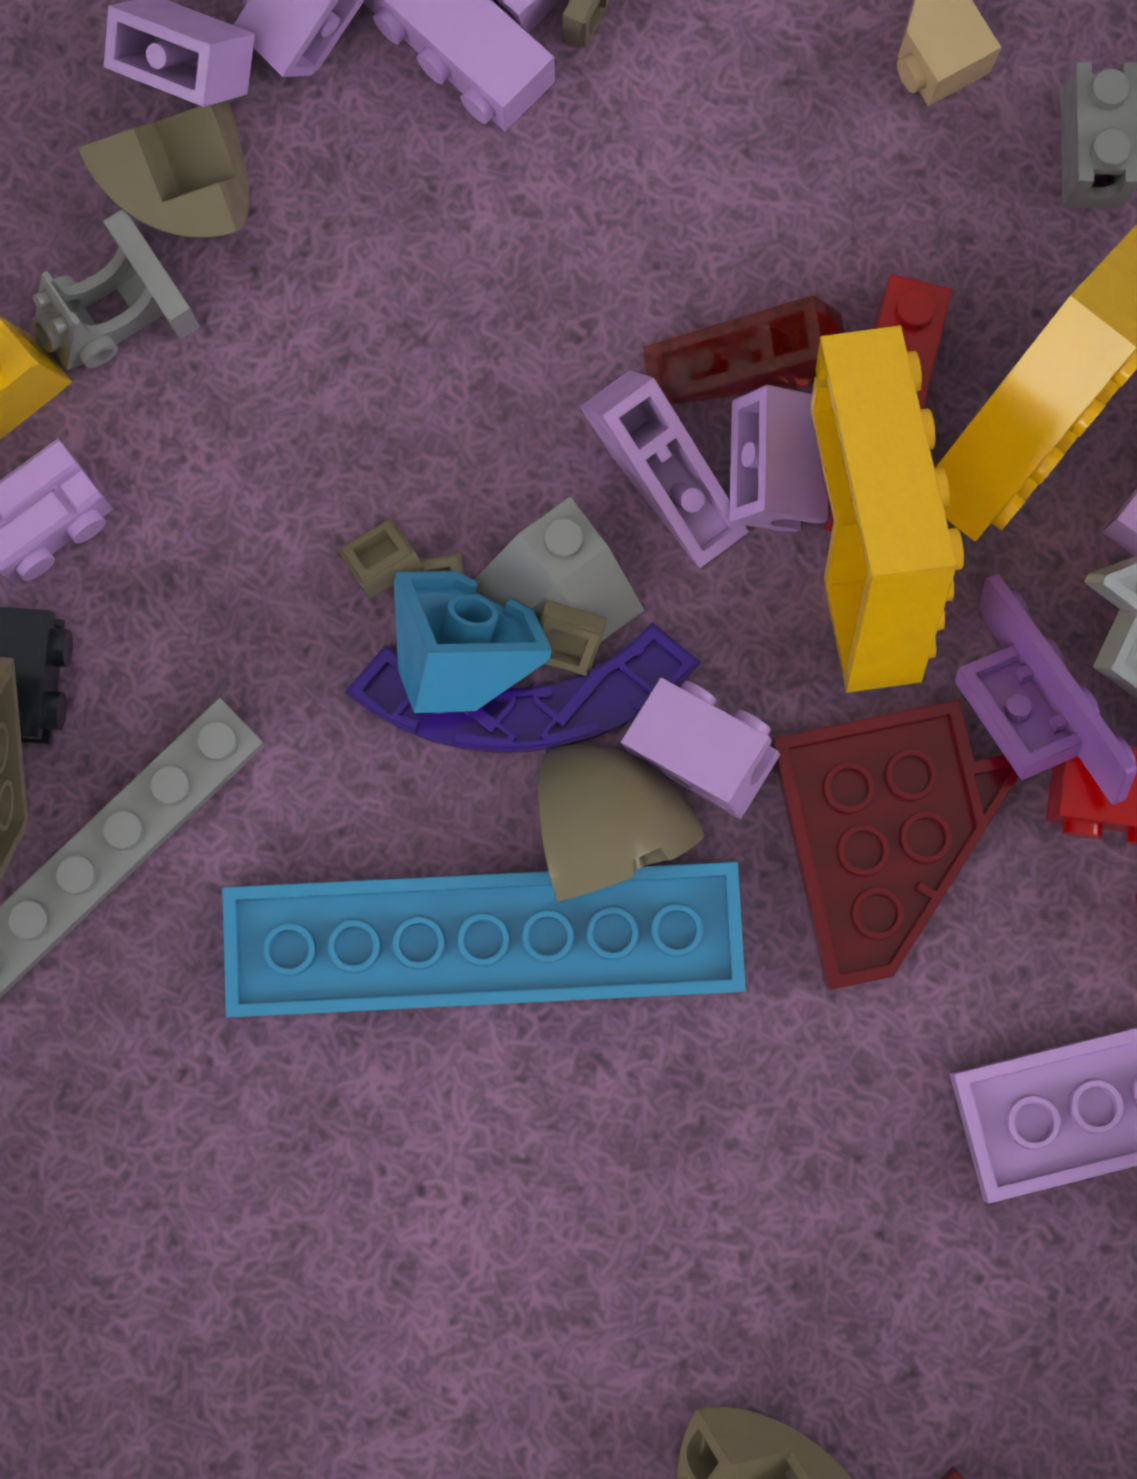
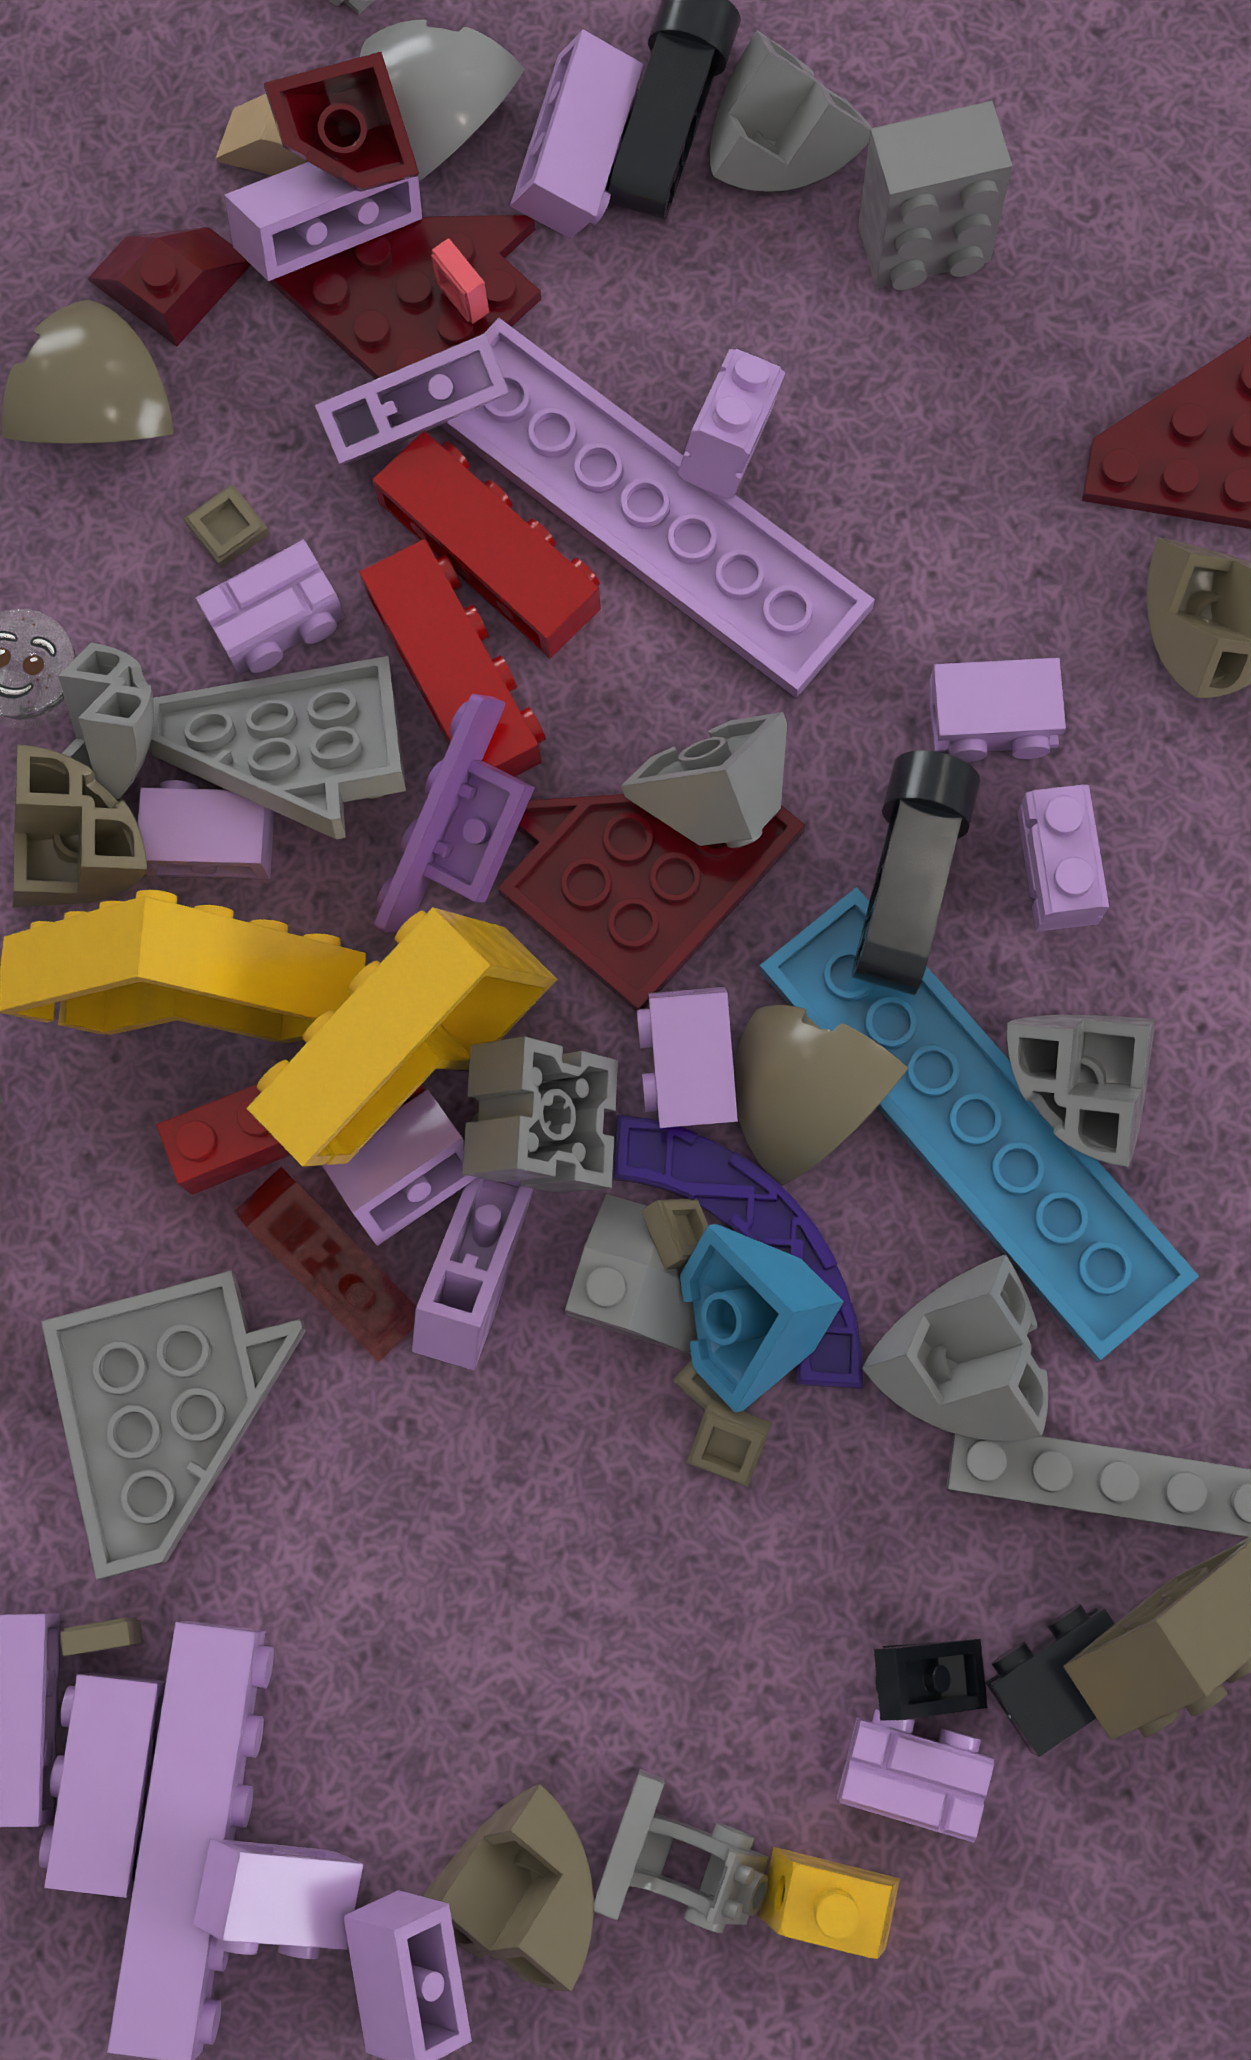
camera: 120 degrees left, 5 degrees down
(94, 572) = (929, 1679): none -> black slope
(304, 786) = (967, 1358): none -> light grey brick
(448, 1053) = (1085, 1078): none -> light grey brick
(644, 1183) = (1062, 857): none -> lavender brick
(729, 159) = (155, 1407): none -> light grey wing
(737, 587) = (540, 1116): none -> light grey brick
(768, 1102) = (927, 811): none -> black beam
(814, 1232) = (997, 708): none -> lavender brick
(913, 935) = (718, 786): none -> light grey slope

